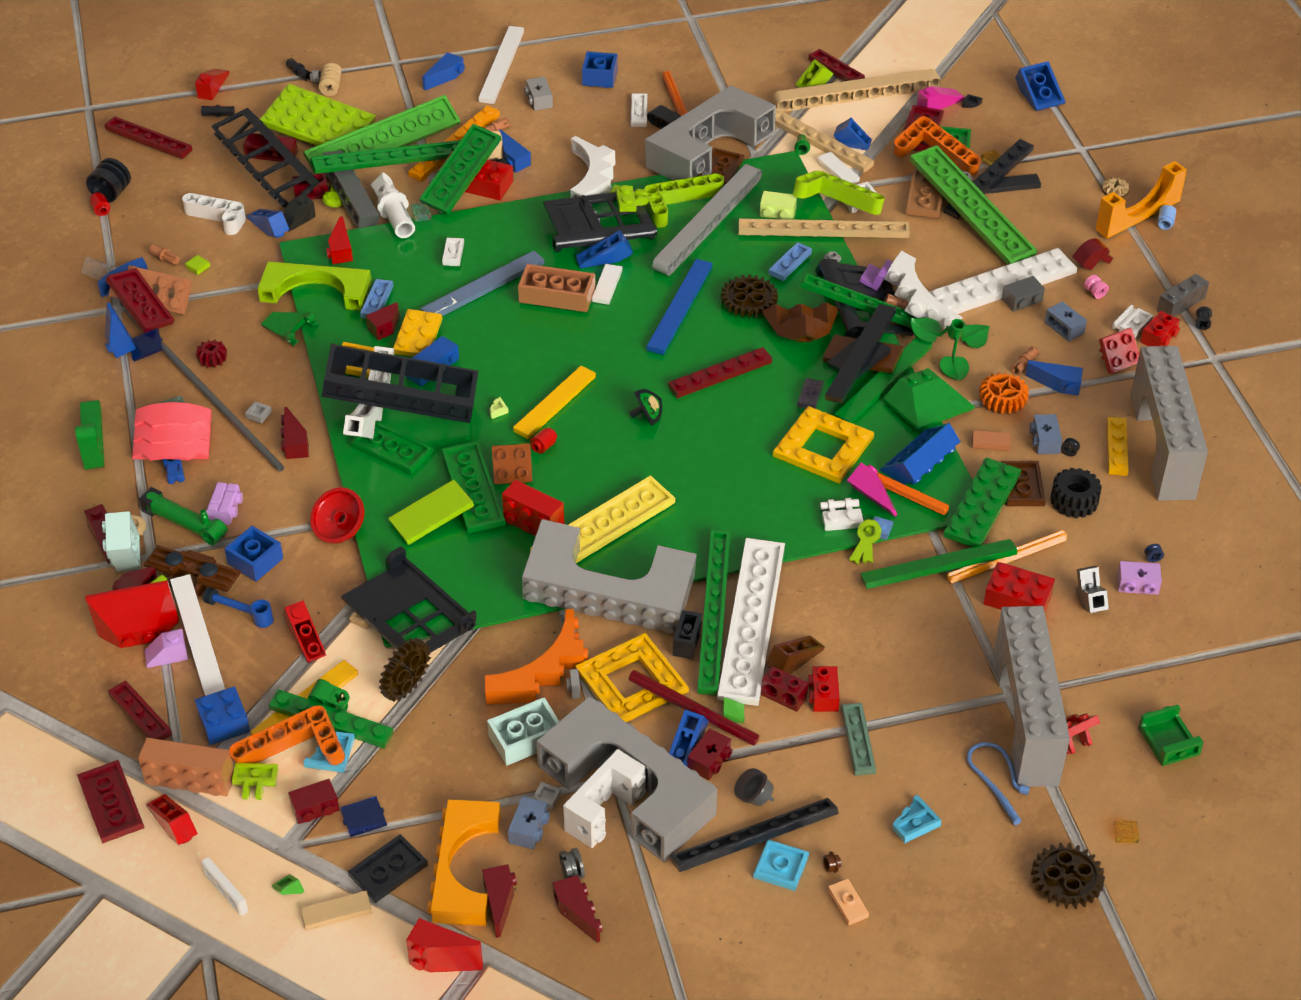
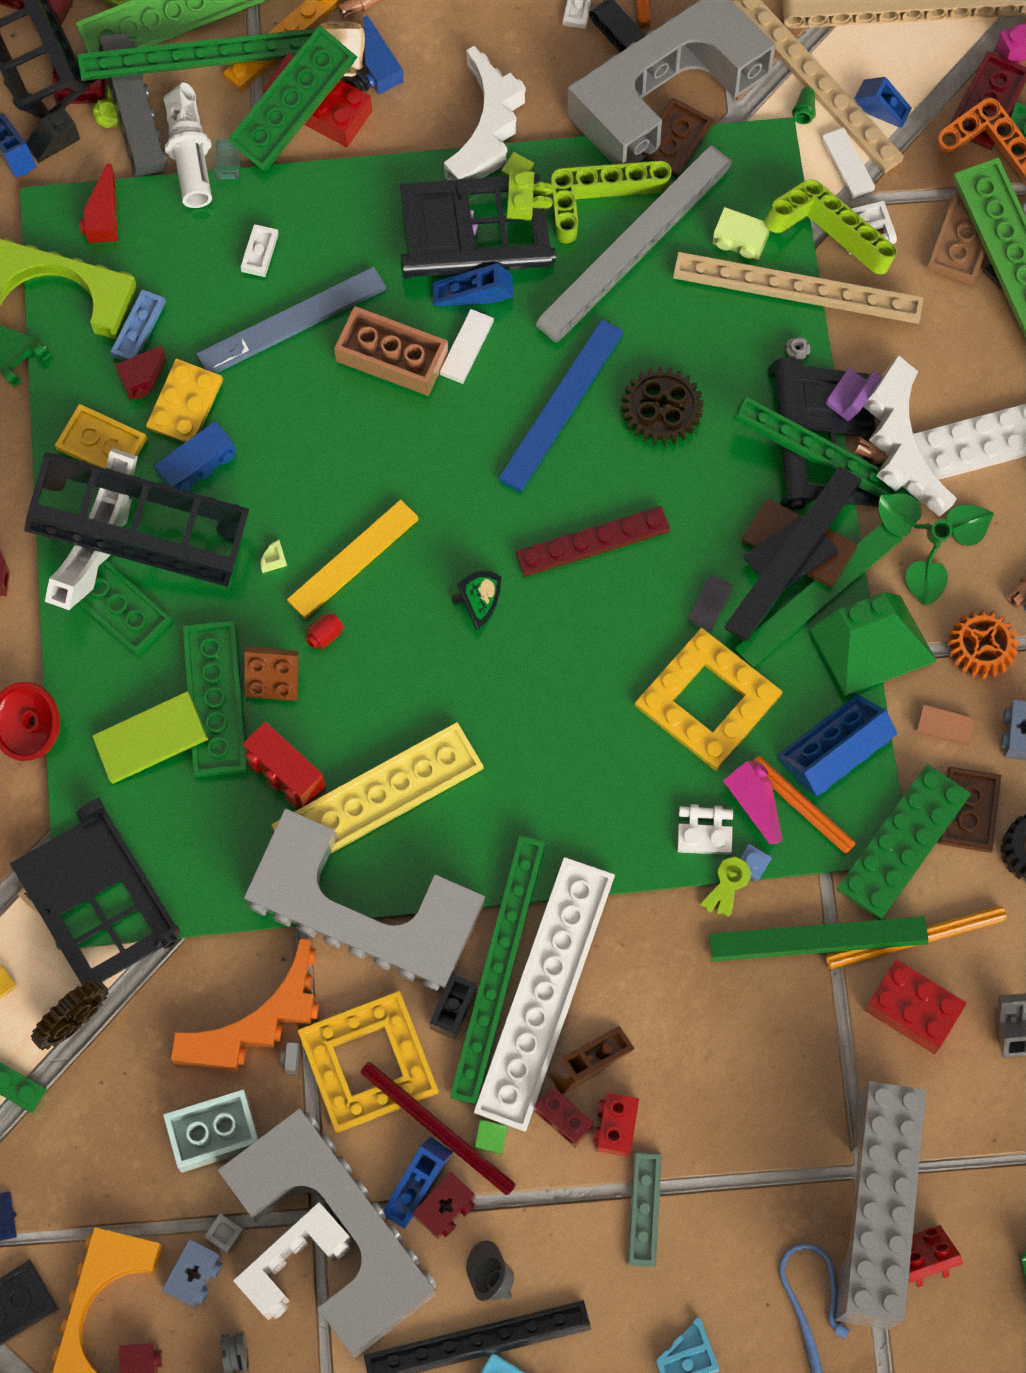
camera: 10 degrees right, 25 degrees up
(790, 261) = (735, 346): medium blue plate -> none
(801, 322) = (725, 474): reddish brown brick -> none

